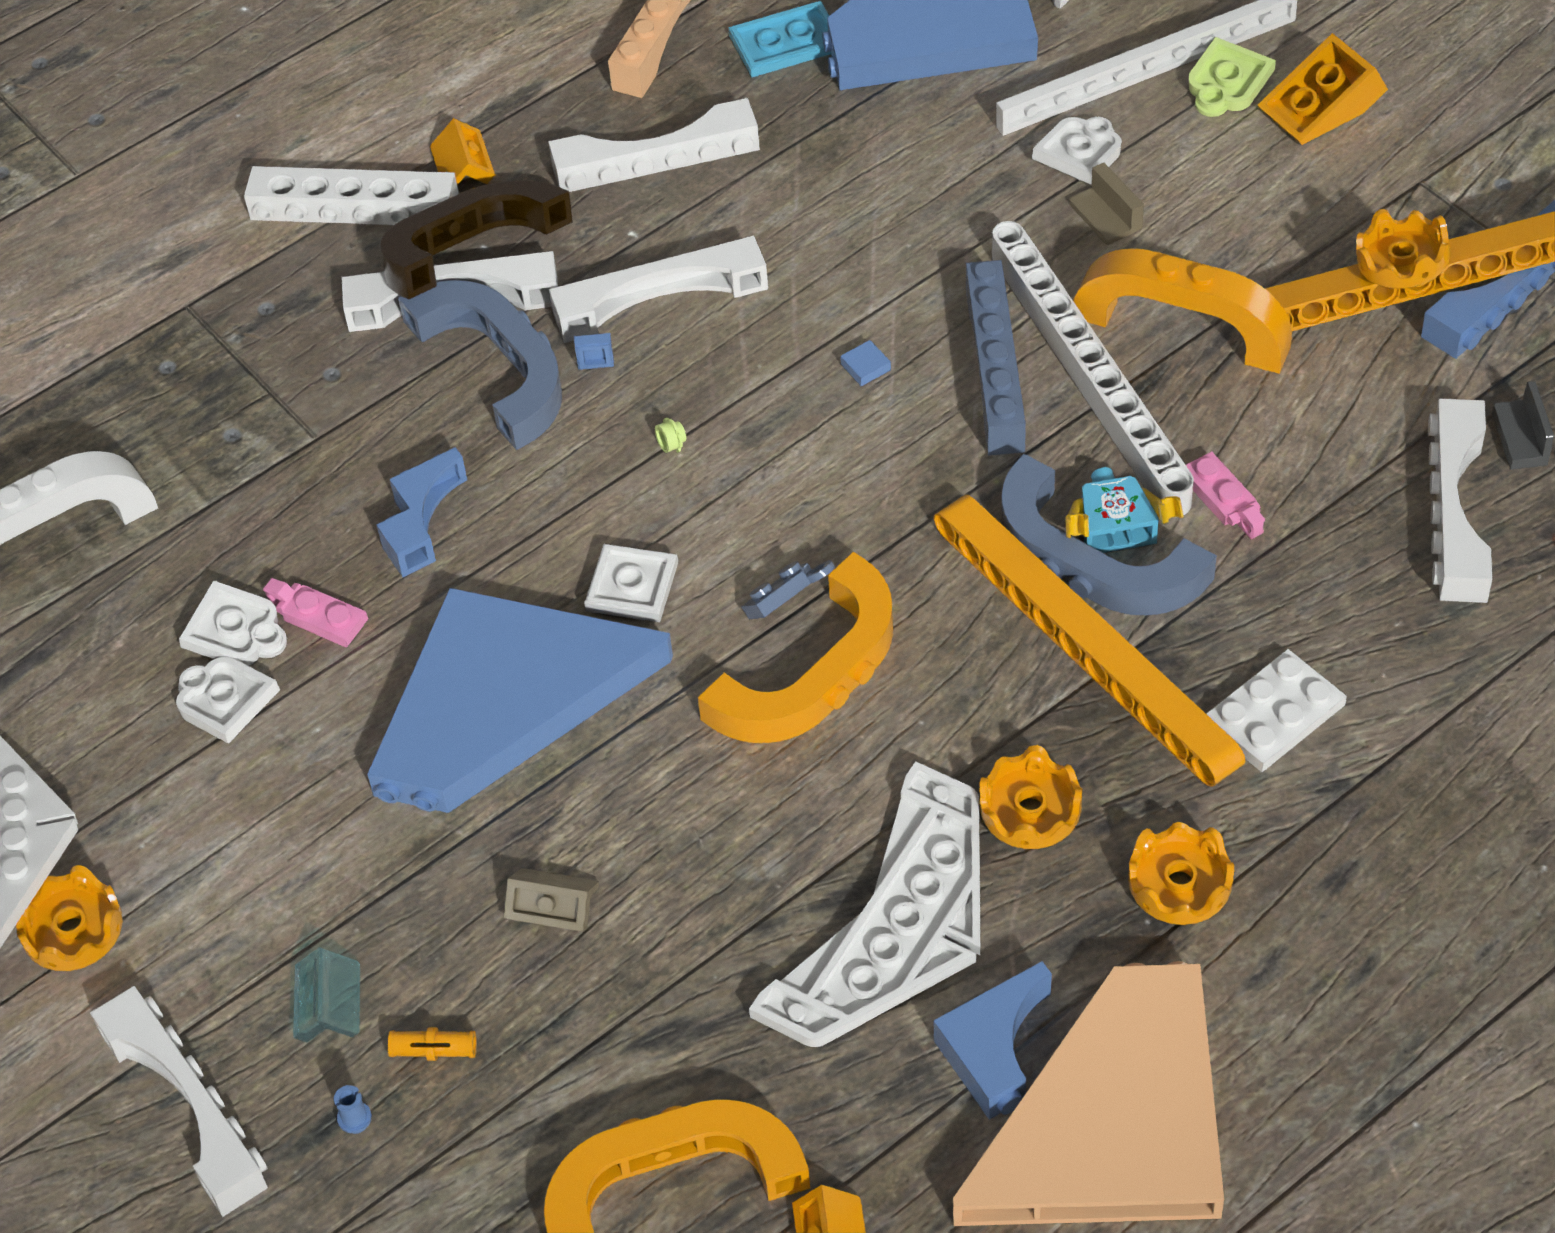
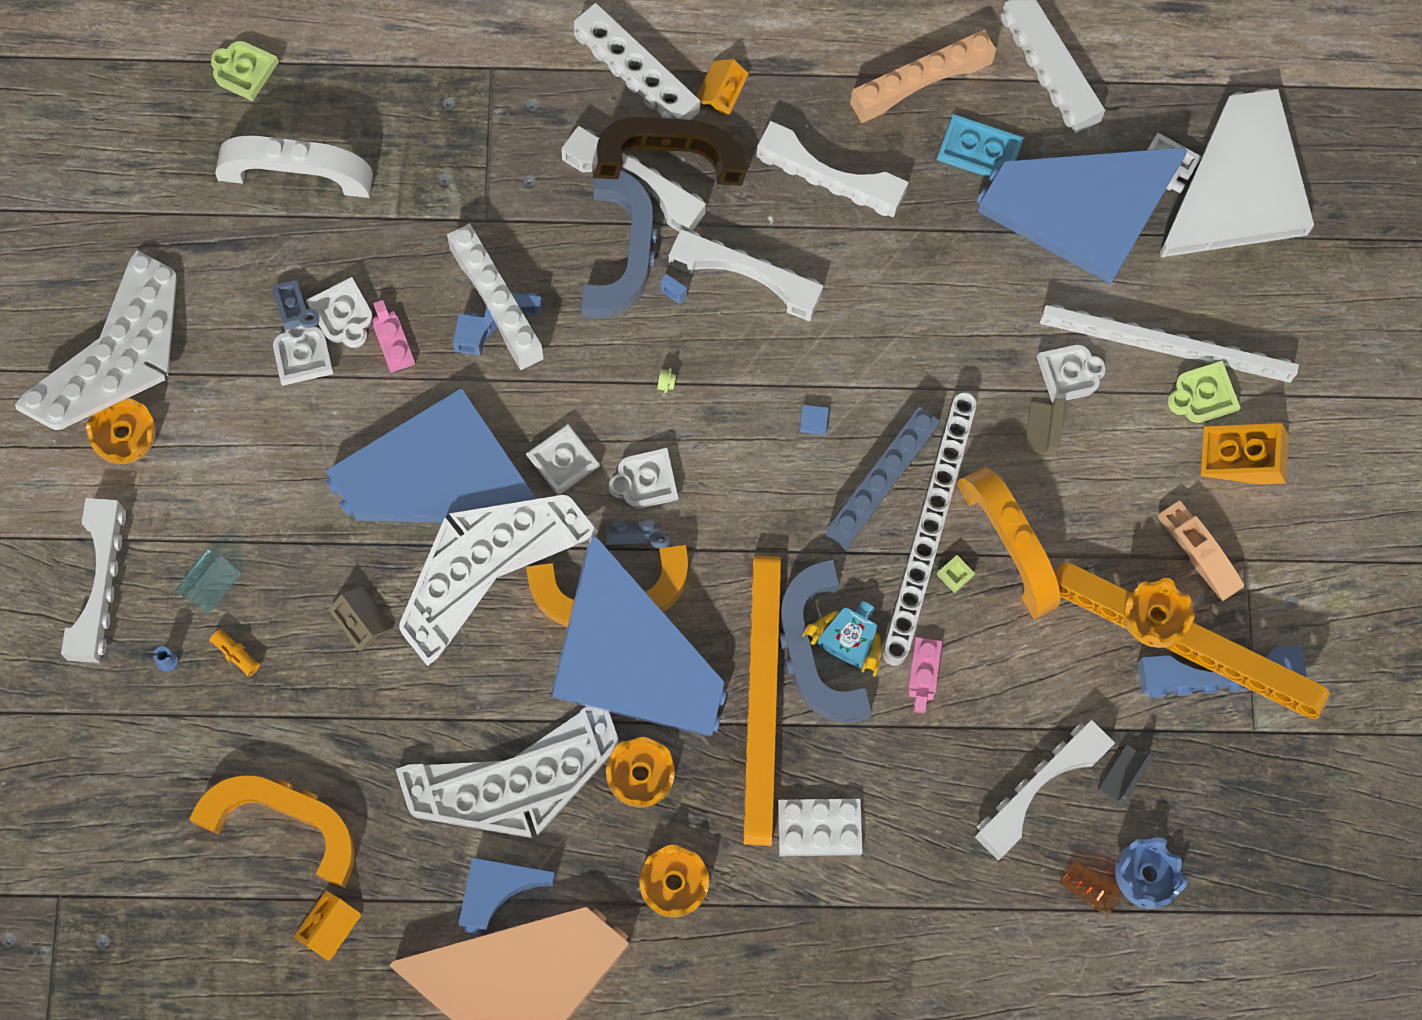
camera: 30 degrees right, 20 degrees up
(169, 655) = (292, 307): none -> sand blue hinge
(465, 494) = (505, 311): none -> white arch
(628, 746) = (466, 566): none -> white wing
(743, 537) = (645, 480): none -> white plate
(904, 688) = (630, 656): none -> medium blue slope
(1159, 385) = (955, 574): none -> yellowish green plate
(1373, 189) = (1202, 549): none -> light nougat slope

